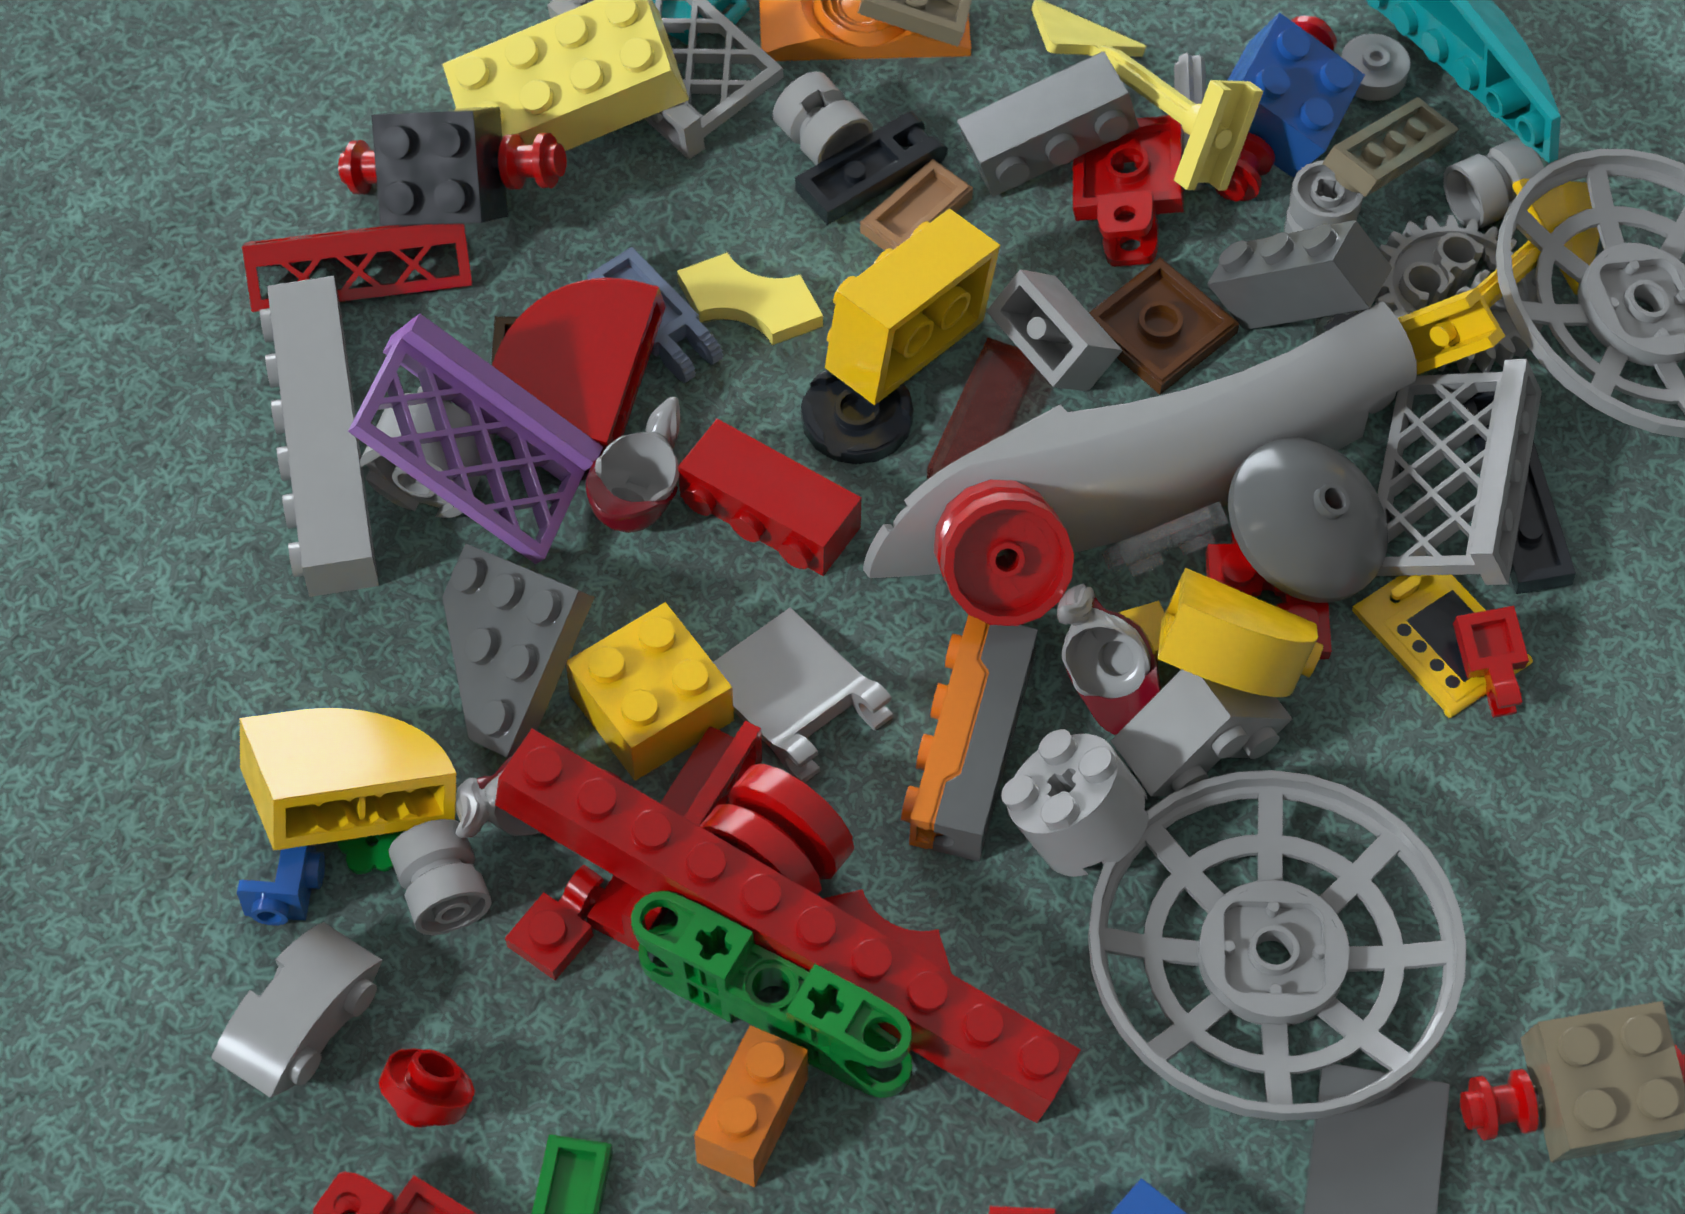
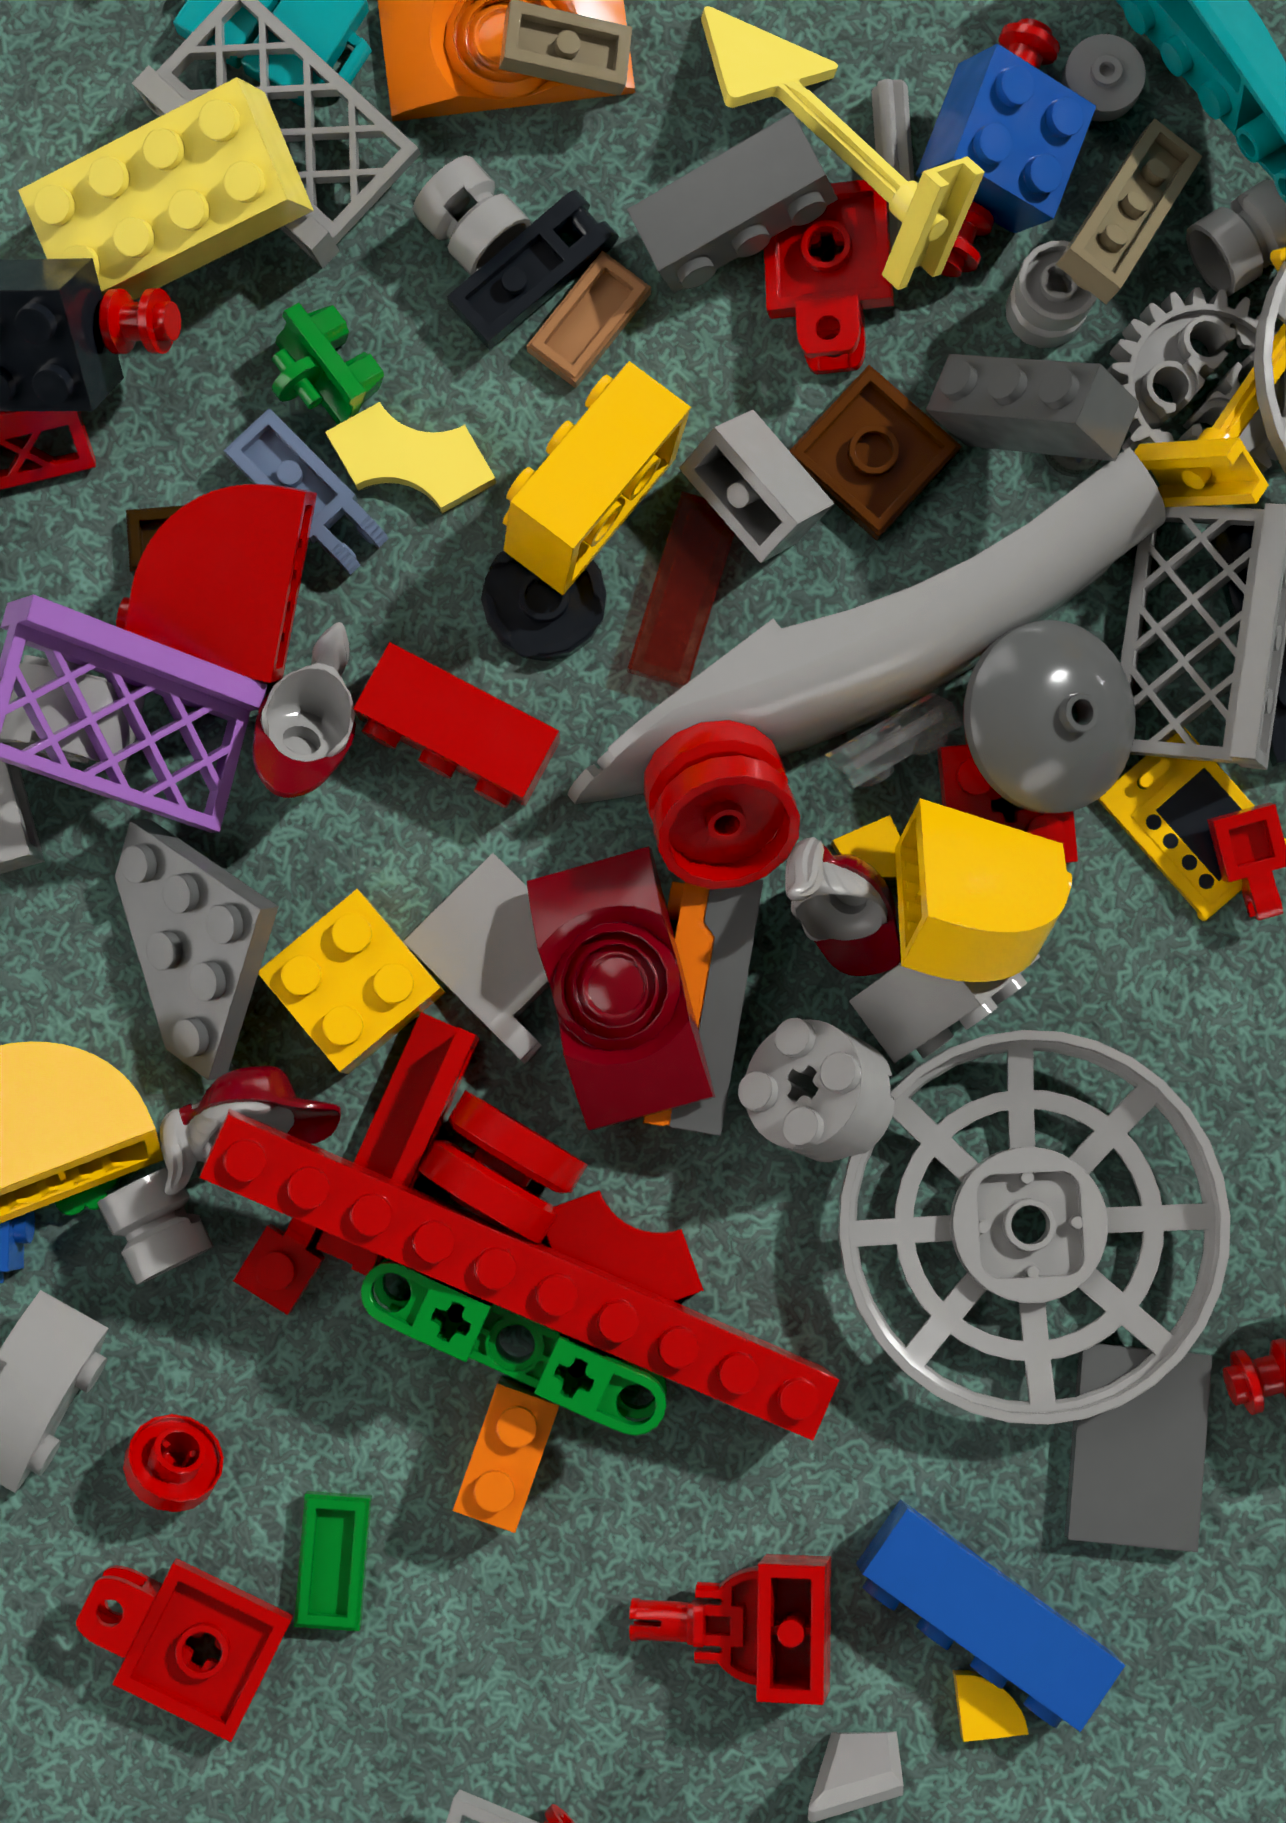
camera: 10 degrees left, 25 degrees up
(676, 219) = (316, 370): none -> green hips
(898, 708) = (618, 989): none -> dark red slope

